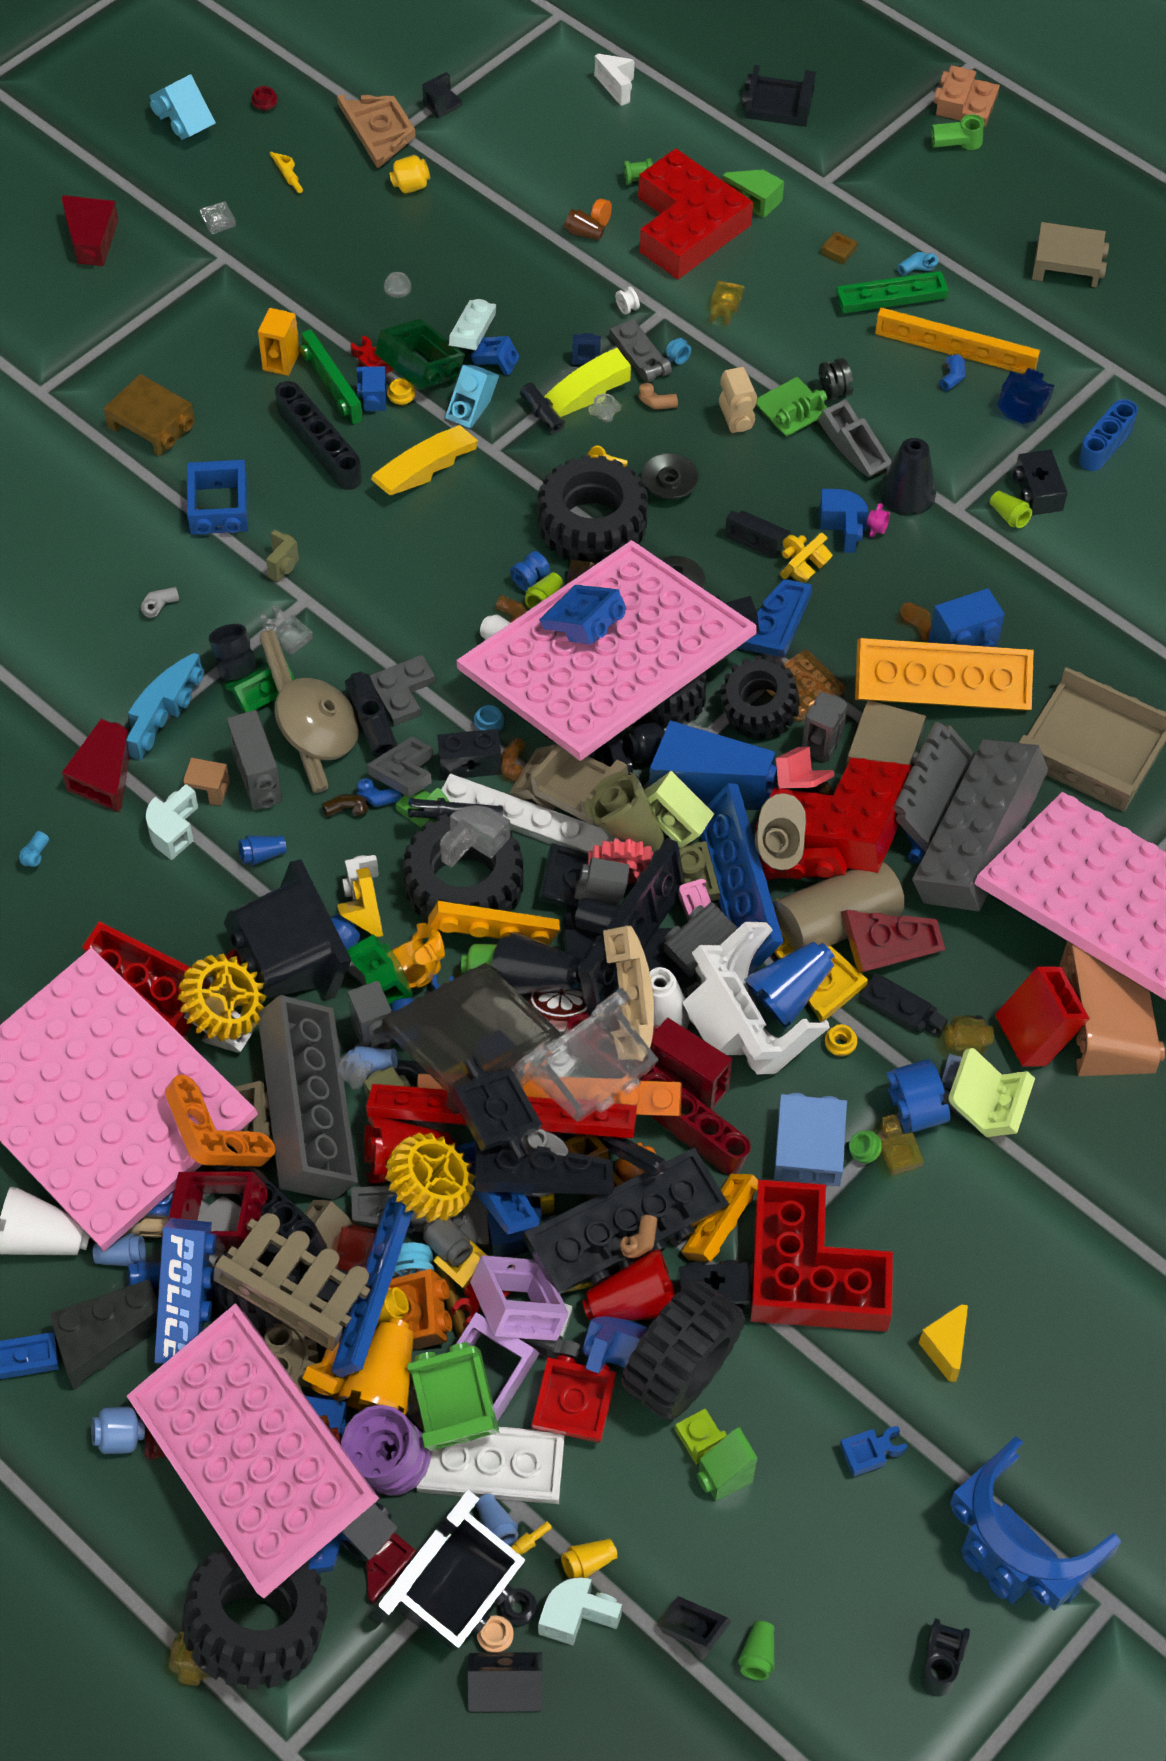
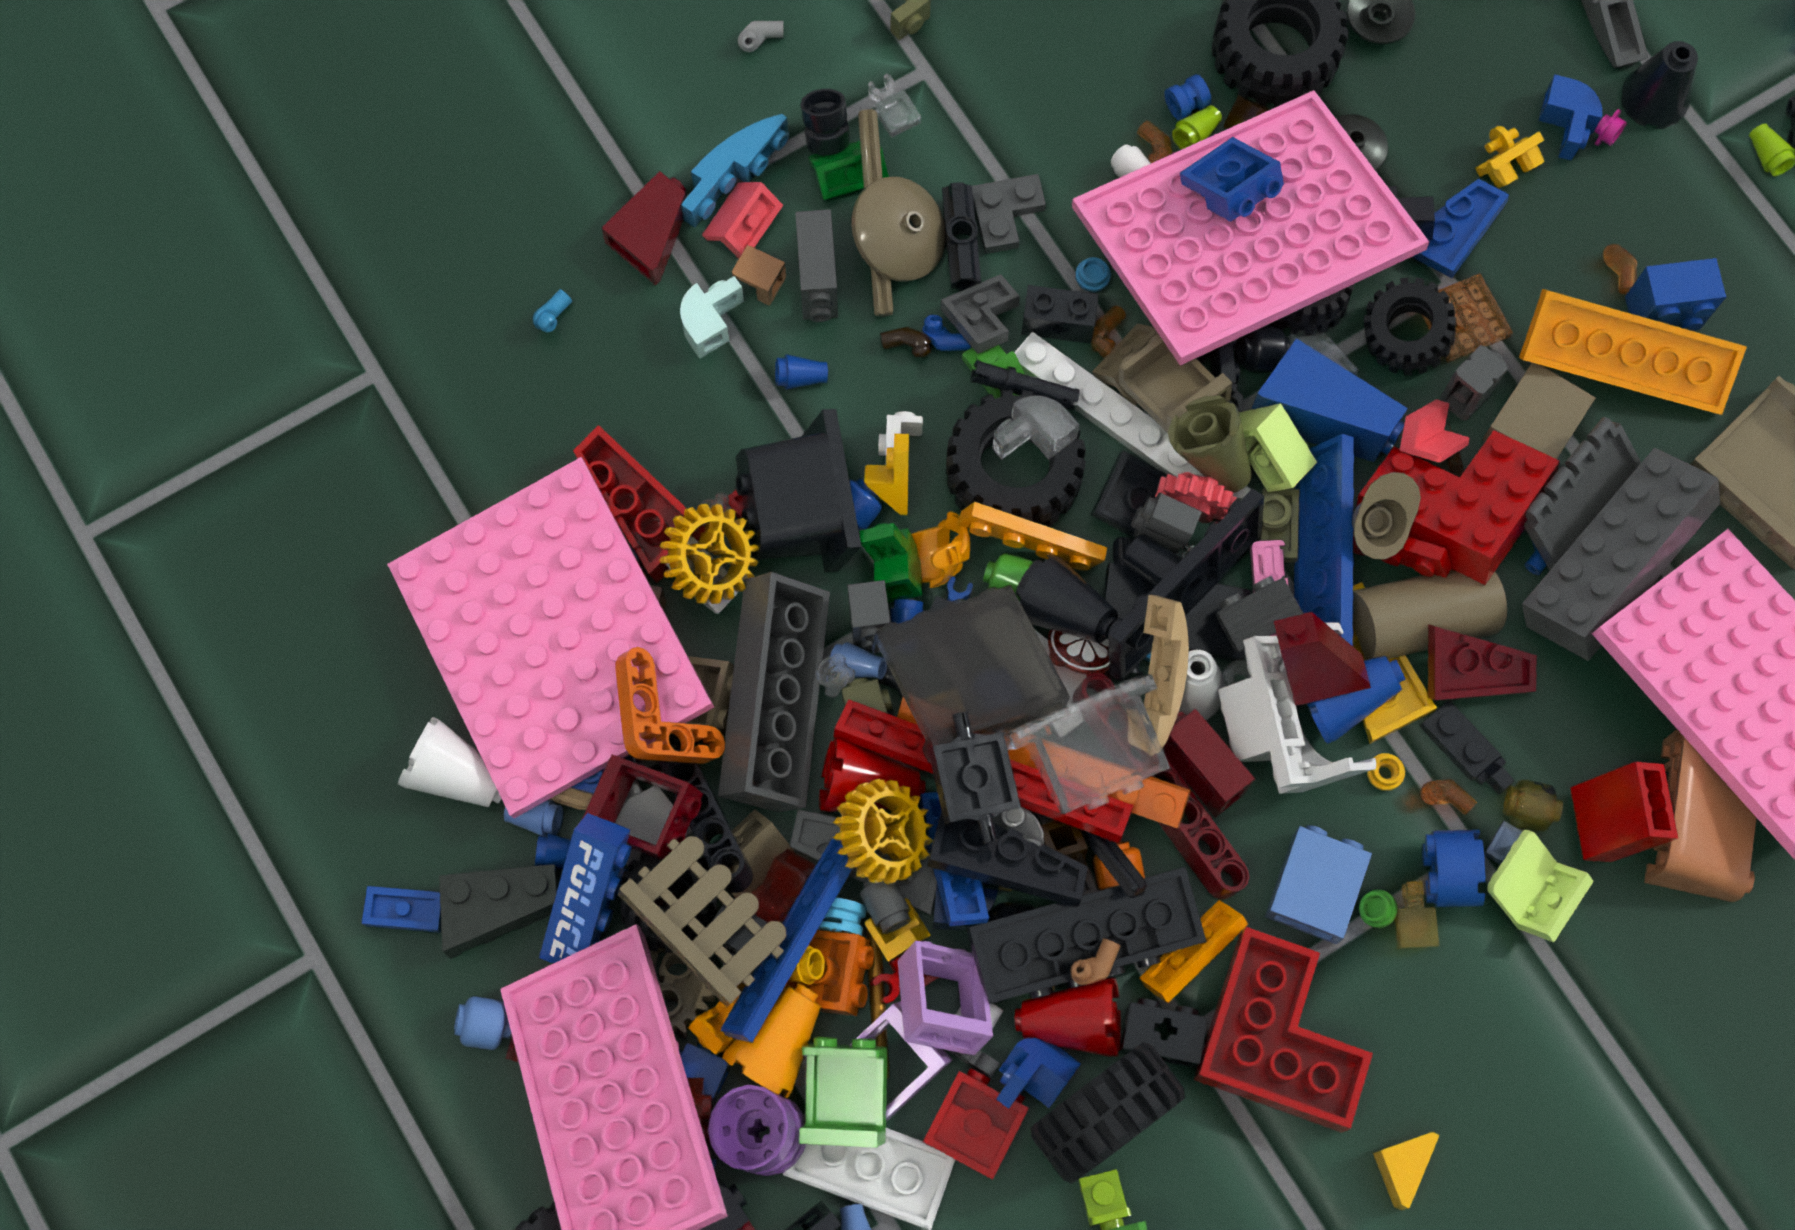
camera: 15 degrees right, 15 degrees up
(181, 740) = (743, 217): none -> coral panel
(755, 533) = (1463, 109): black panel -> none
(756, 950) = (1318, 659): none -> dark red slope
(896, 1044) = (1445, 792): none -> clear orange arm

